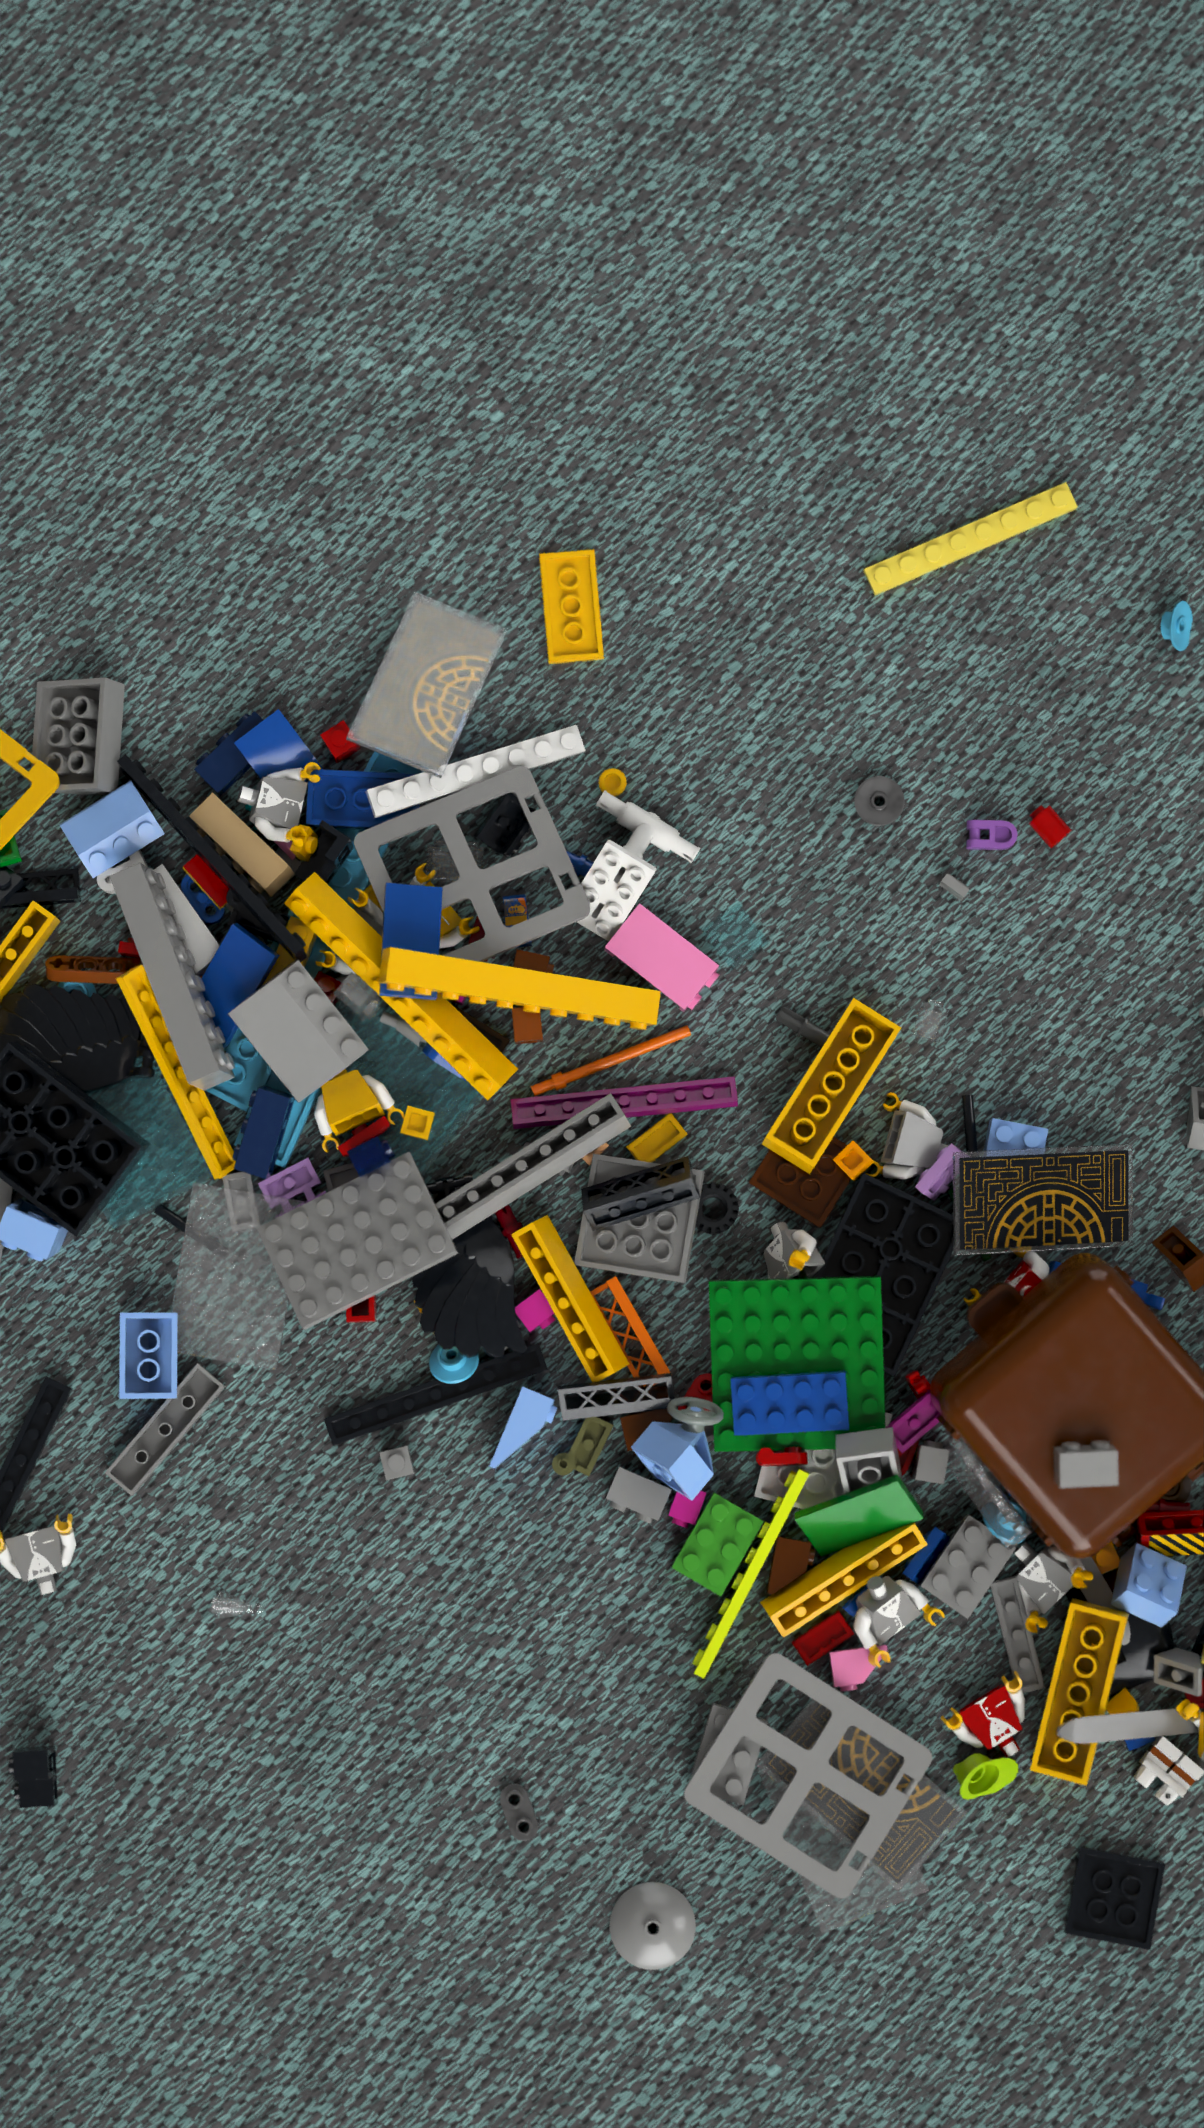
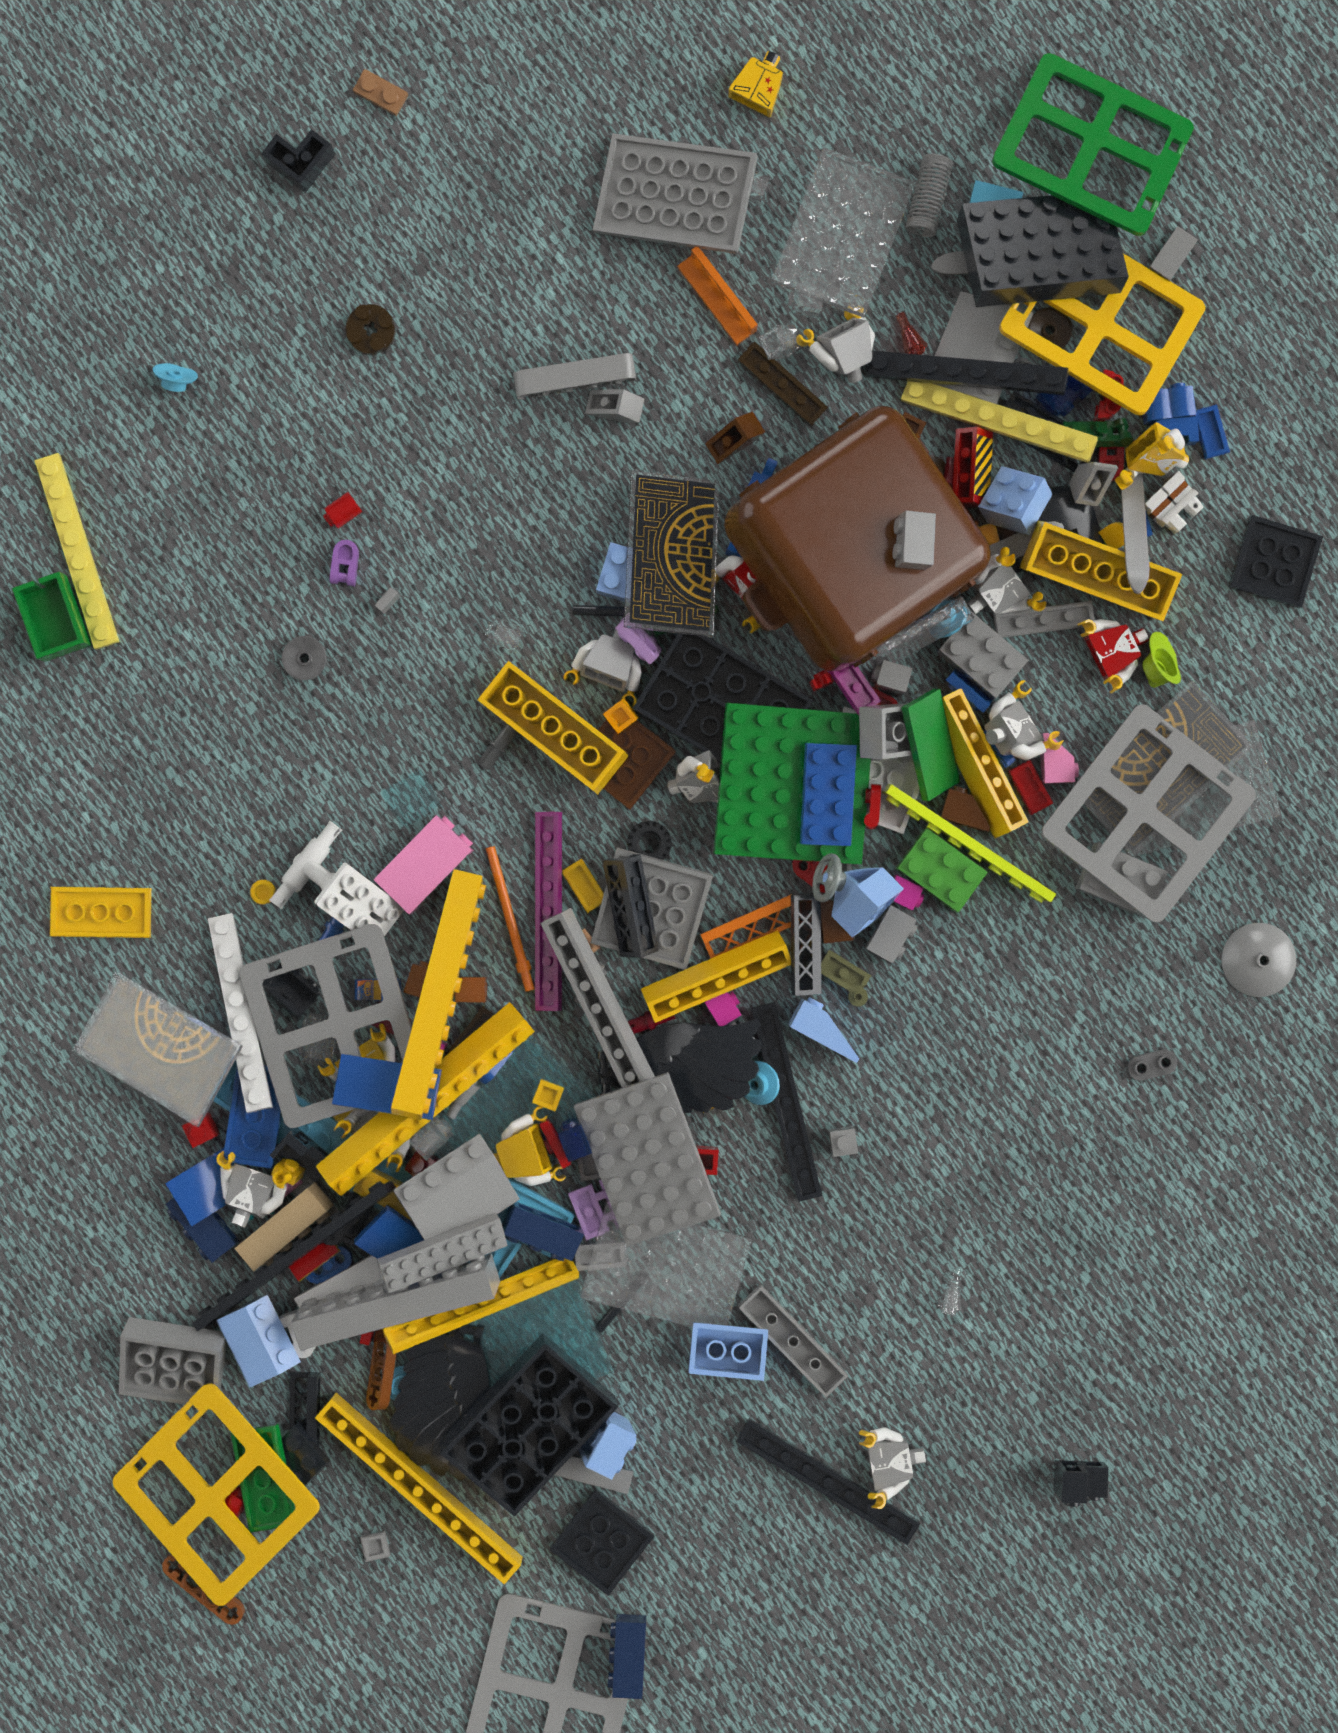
camera: 85 degrees left, 5 degrees up
(232, 1021) = (441, 1252): none -> light grey piece
(893, 519) = (51, 617): none -> green piece

